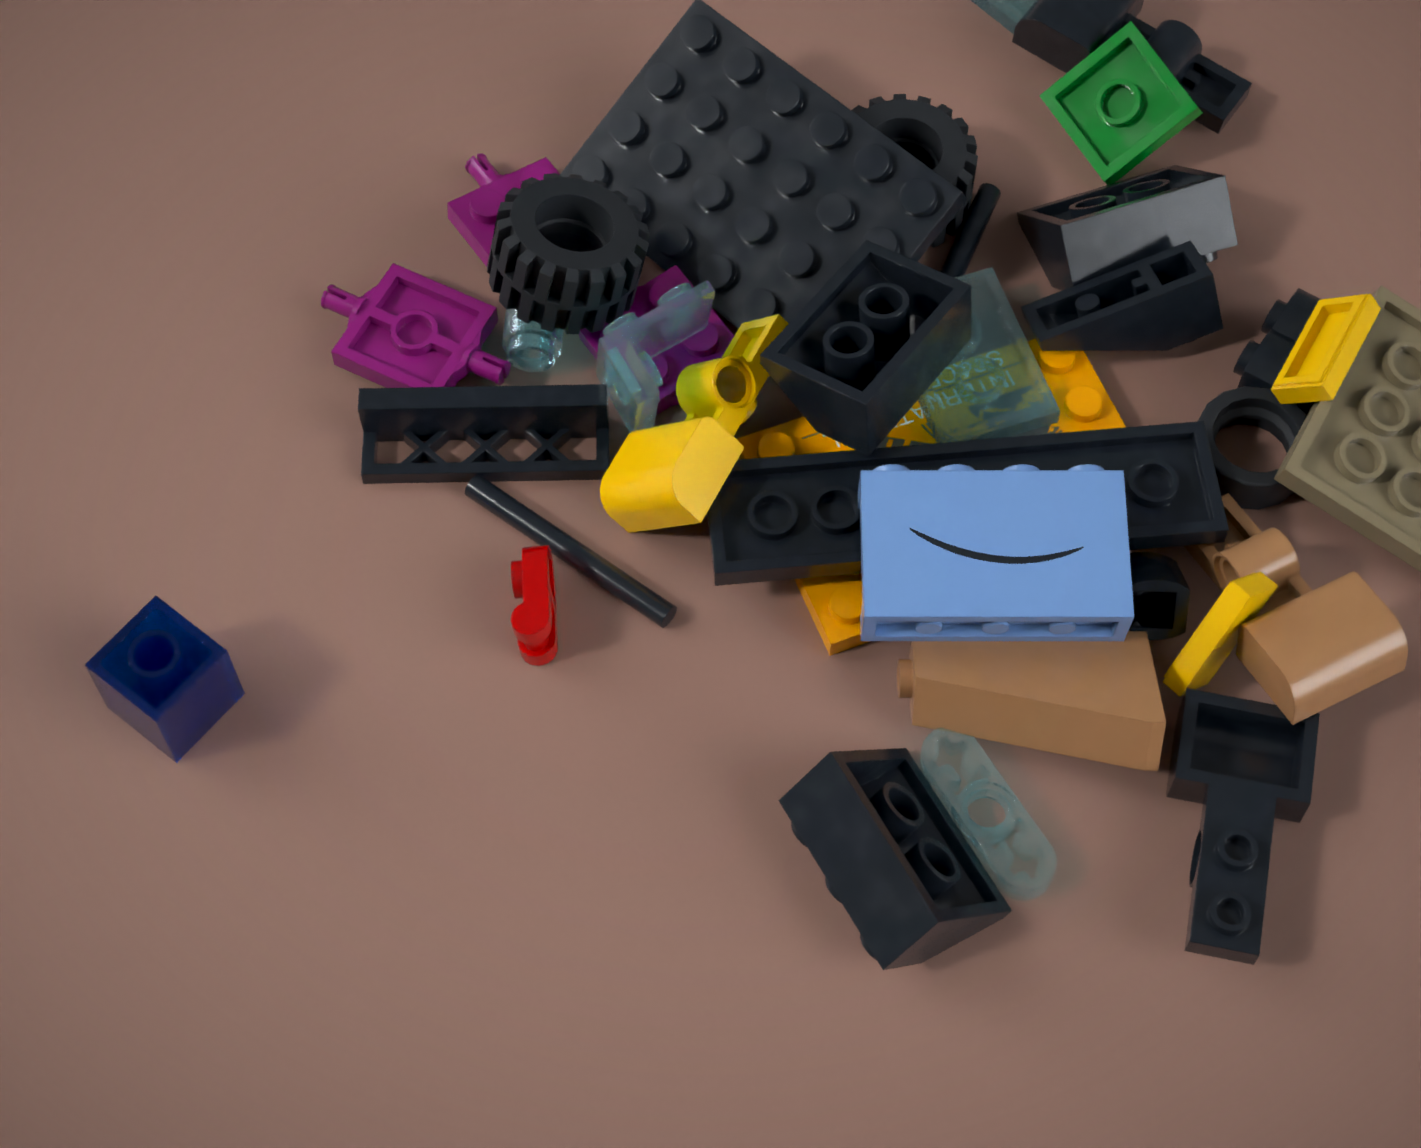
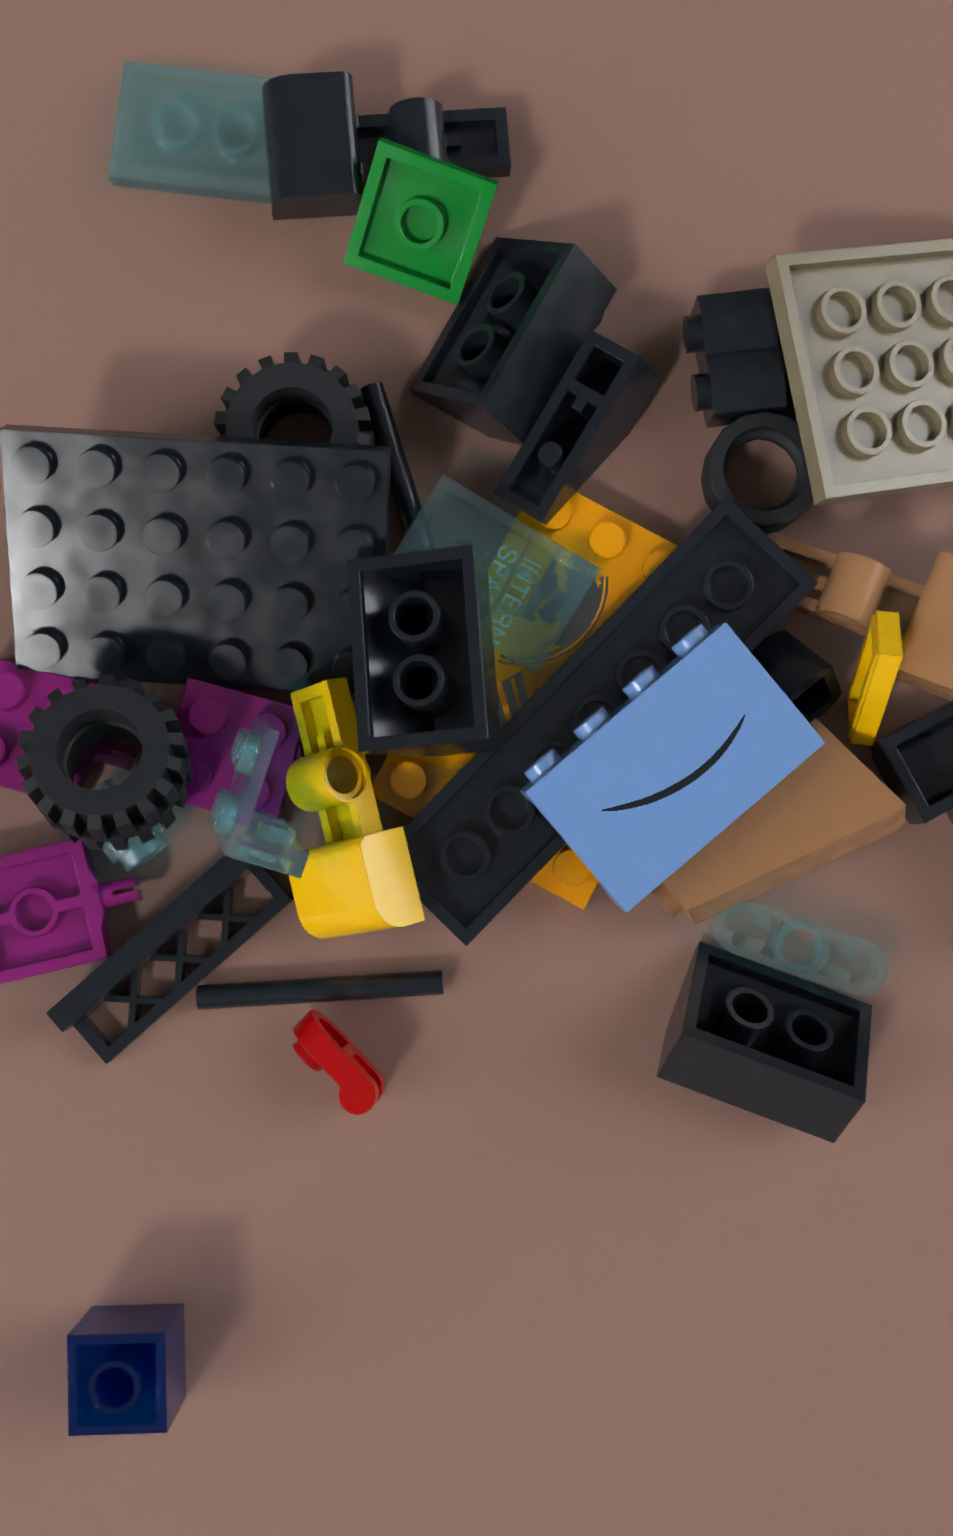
camera: 40 degrees left, 25 degrees up
(1325, 349) = (776, 354): yellow tile -> none

